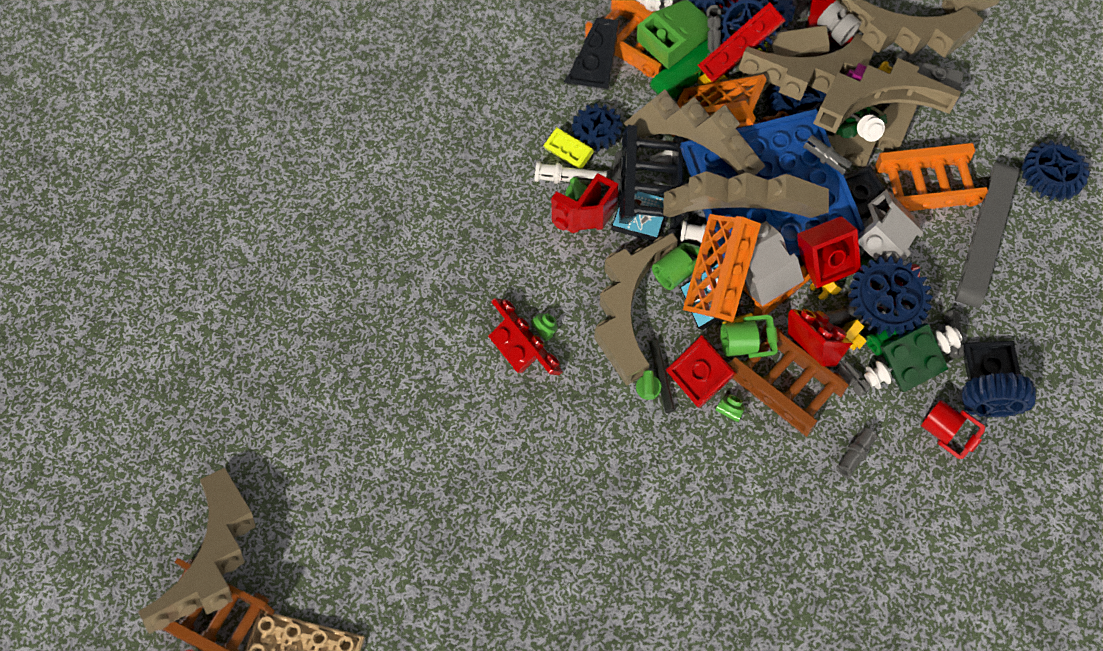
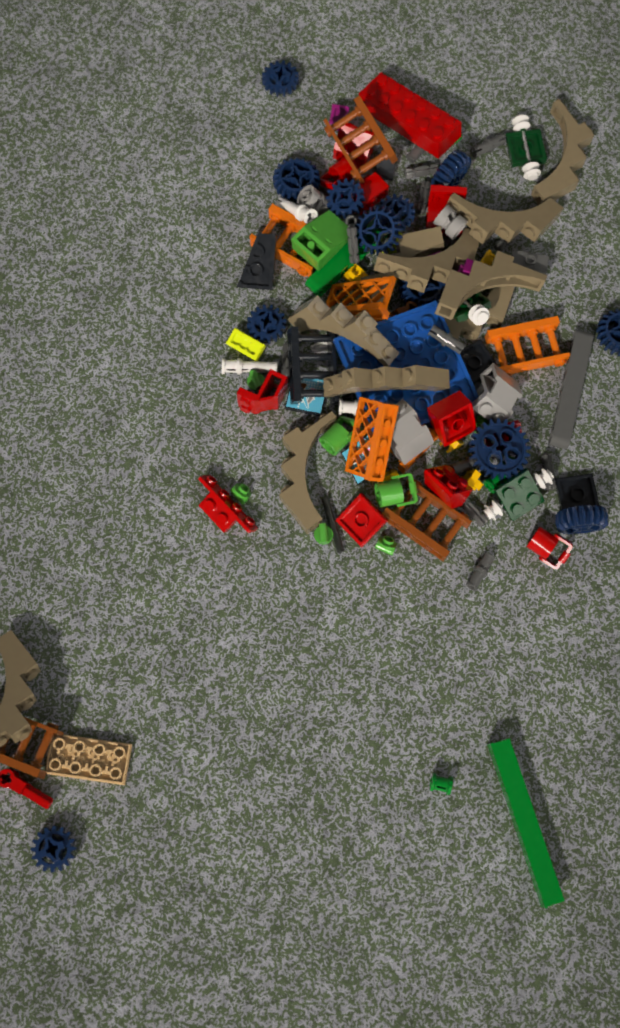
camera: 10 degrees left, 10 degrees up
(749, 35) = (378, 243): red tile -> none

